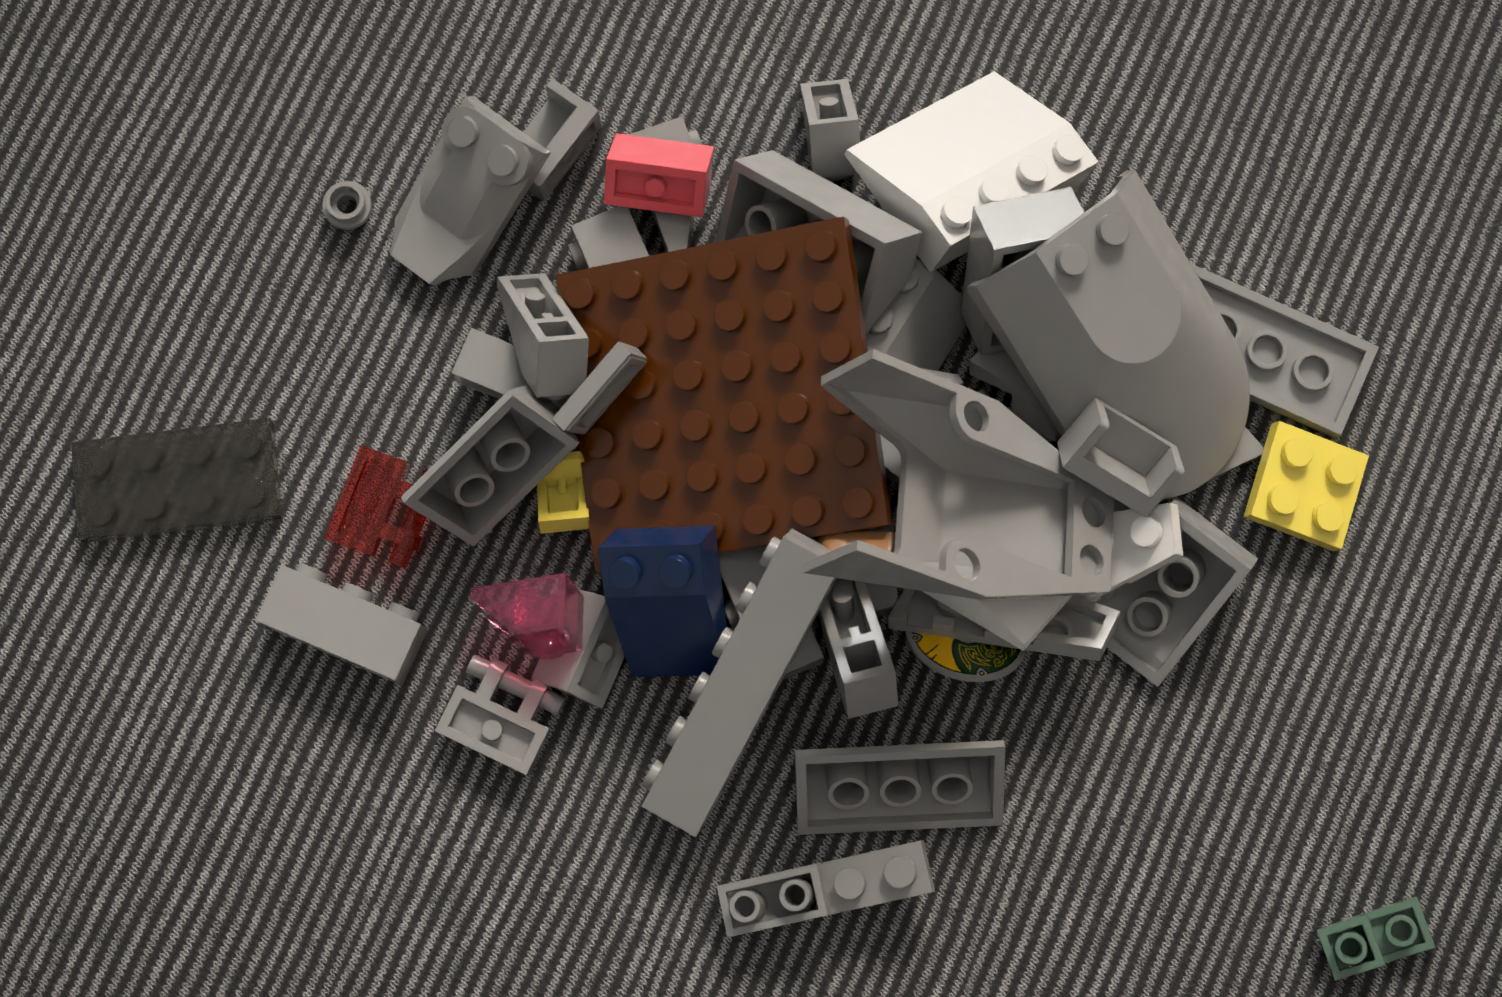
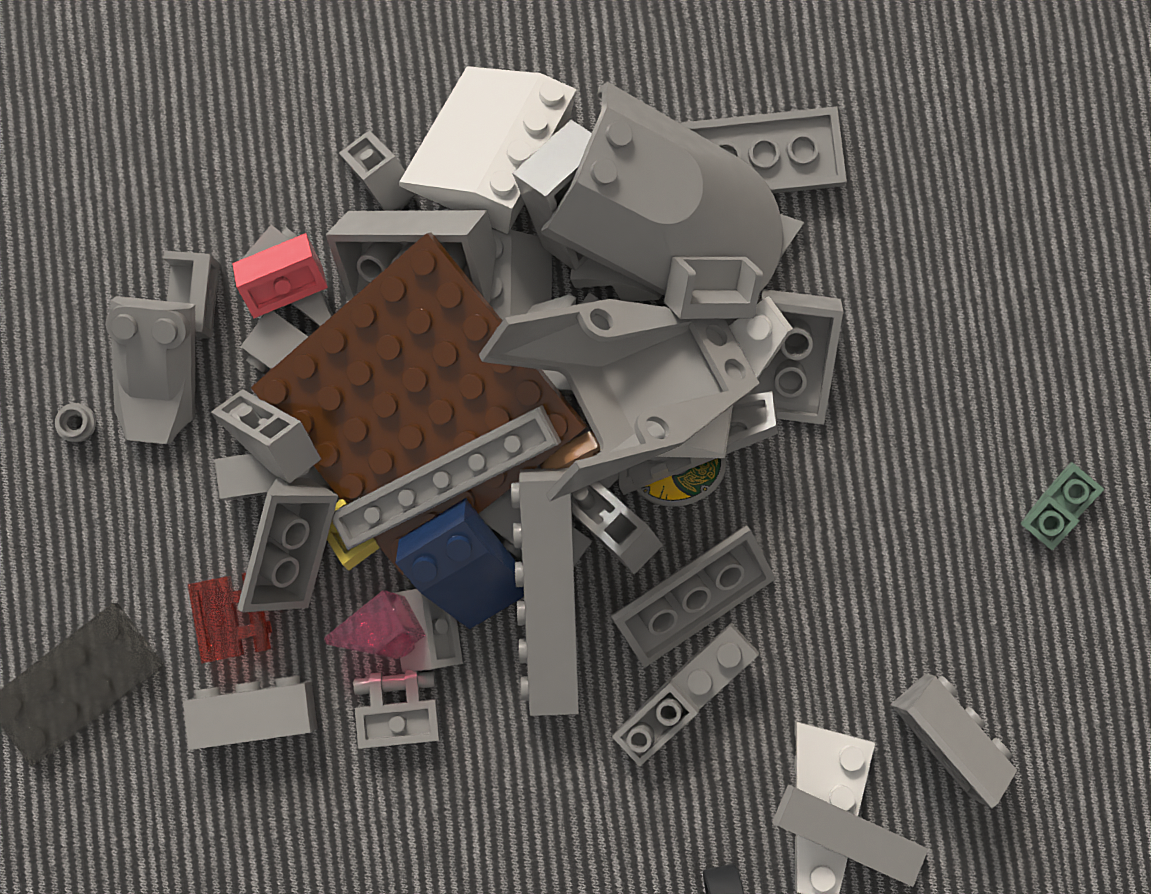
camera: 30 degrees left, 5 degrees up
(600, 389) = (330, 450): light grey tile -> none
(707, 490) = (446, 477): none -> light grey tile
(1306, 486) = (843, 230): light yellow plate -> none

